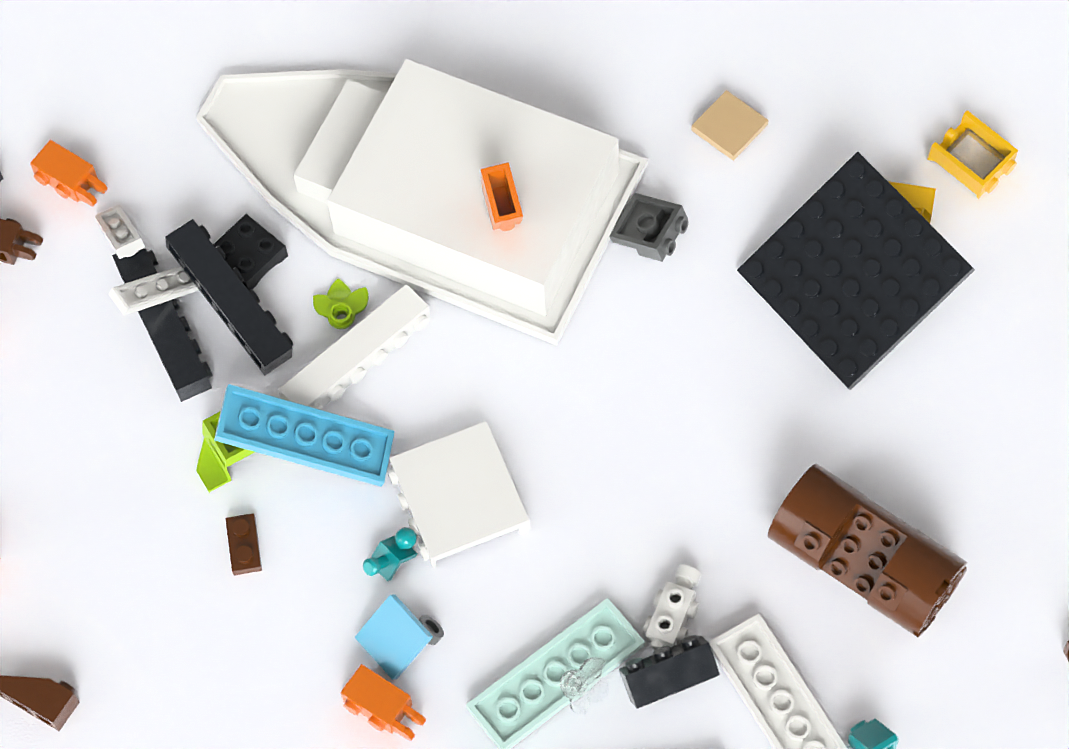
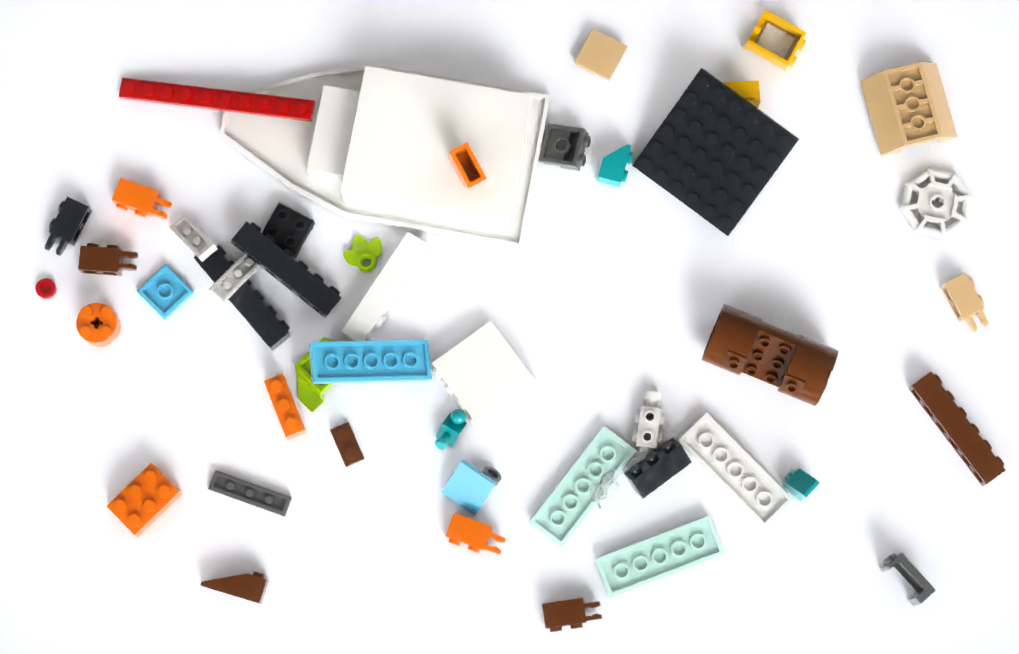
camera: 20 degrees left, 15 degrees up
(63, 296) = (165, 291): none -> medium azure tile
(91, 578) = (250, 493): none -> dark grey tile
(173, 473) = (285, 406): none -> orange brick
(207, 74) = (217, 99): none -> red plate
(711, 265) = (613, 167): none -> teal slope

